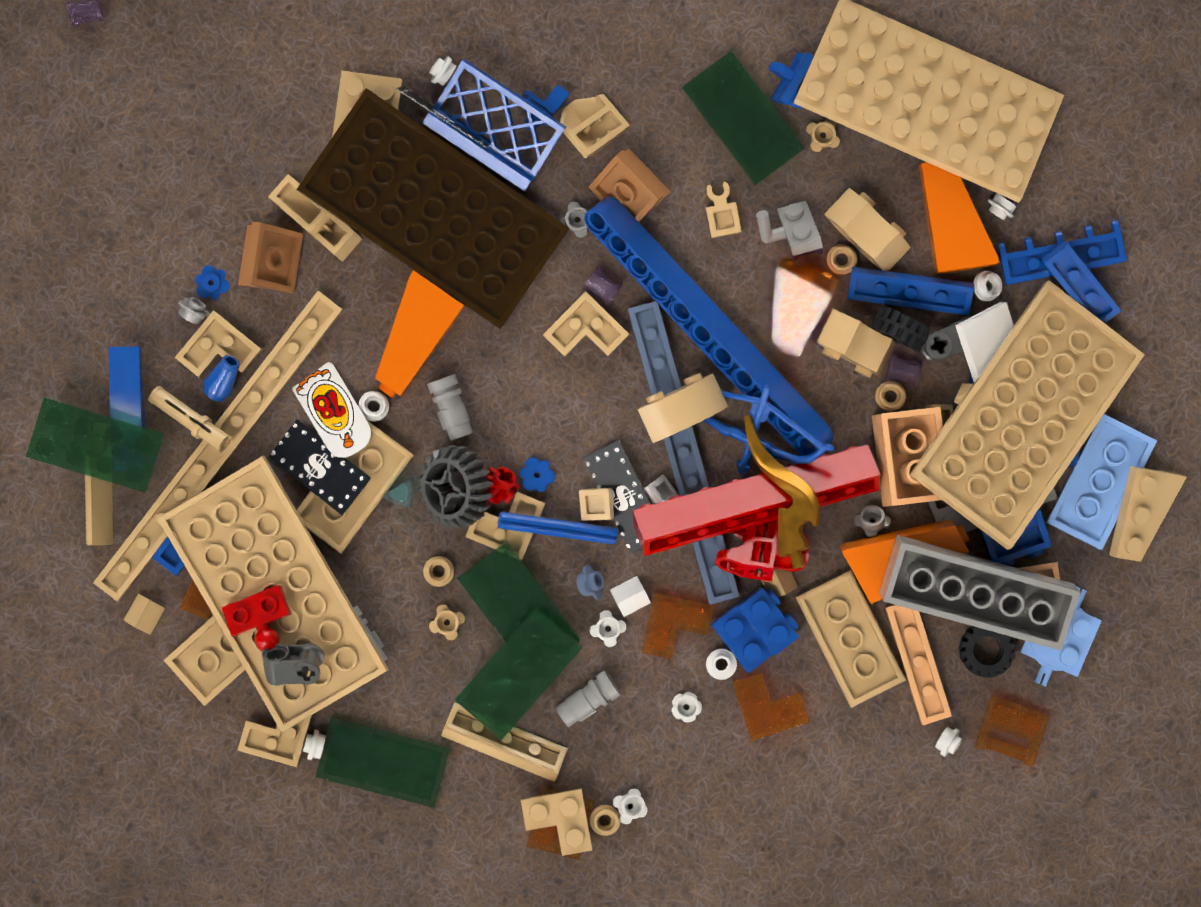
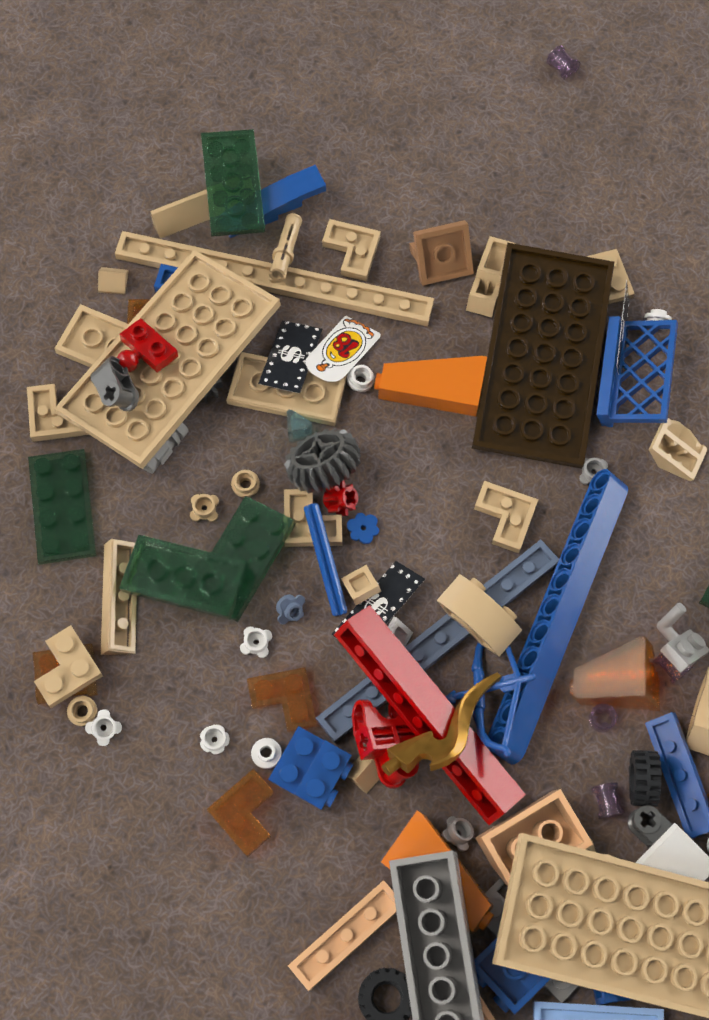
camera: 65 degrees right, 20 degrees down
(193, 310) = (373, 217): light grey plate -> none
(220, 284) = (403, 232): blue plant -> none
(221, 380) = (328, 257): blue cone -> none
(314, 745) = (55, 443): white plate -> none
(452, 411) = (385, 438): light grey axle -> none
(550, 105) = (677, 411): blue piece -> none
(586, 700) = (183, 648): light grey axle -> none
(602, 286) = (549, 512): clear purple bush -> none
(630, 184) = (647, 497): medium nougat bracket -> none
(630, 596) = (292, 649): white slope -> none
(722, 217) = (660, 585): tan plate -> none
(841, 249) = (682, 696): tan plate -> none
(850, 638) = (339, 862): tan plate -> none
(856, 344) = (610, 744): tan brick -> none
(900, 396) = (587, 796): tan plate -> none
(949, 741) = (283, 999): white plate -> none

